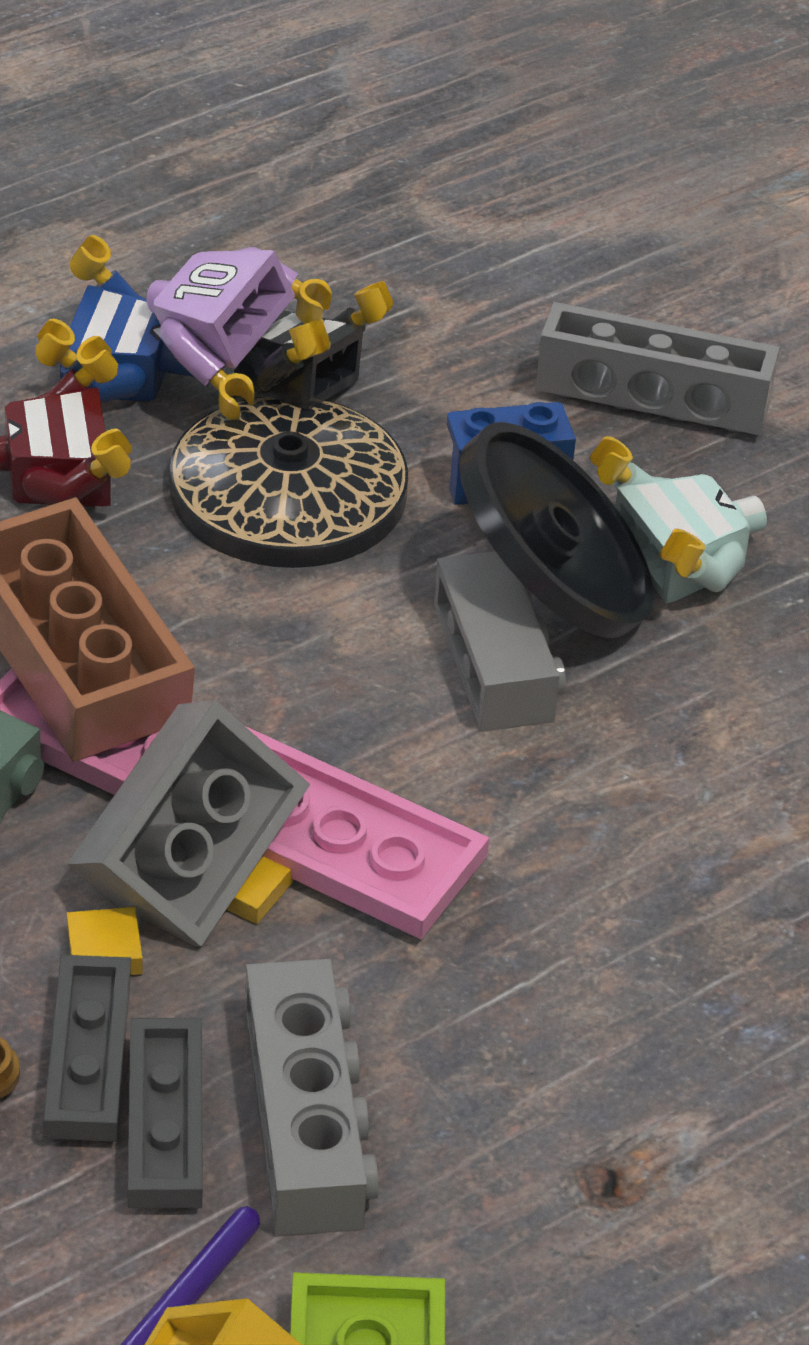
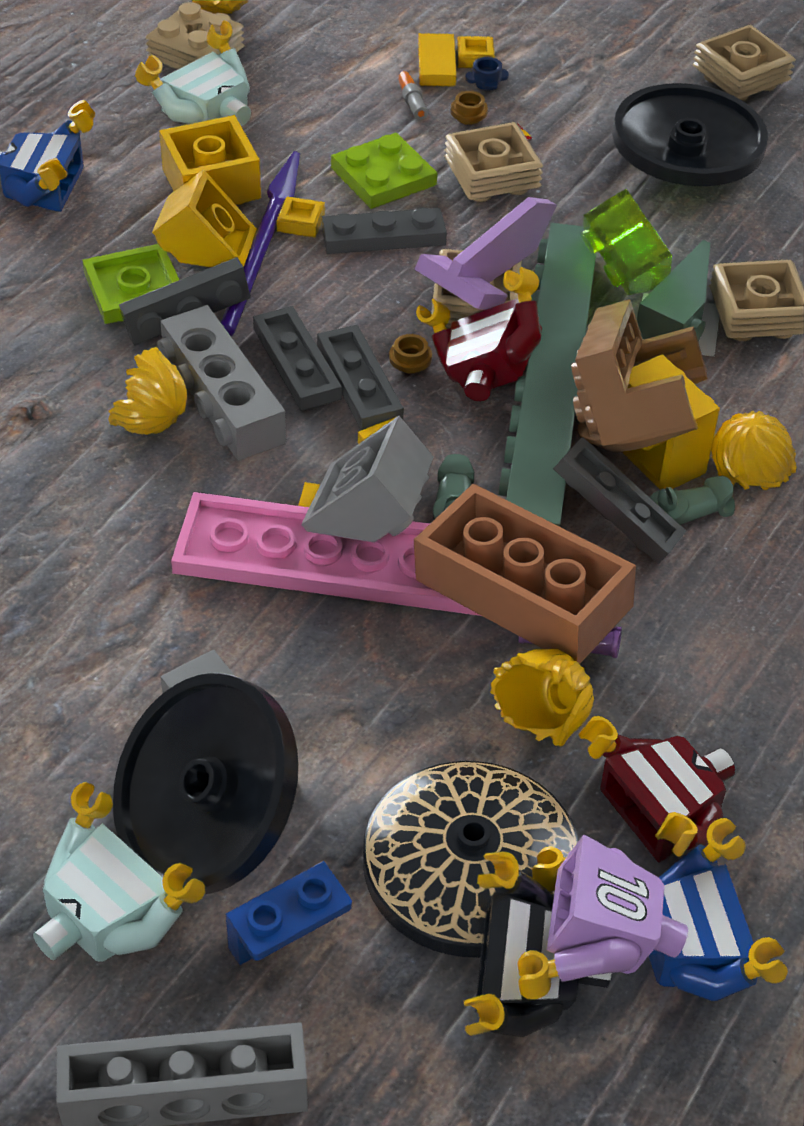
camera: 160 degrees right, 5 degrees up
(43, 863) = (455, 477): none -> sand green piece
(135, 542) = (543, 694): none -> yellow hair
(300, 1238) = (216, 287): none -> dark grey plate
(434, 1075) = (154, 395): none -> yellow hair

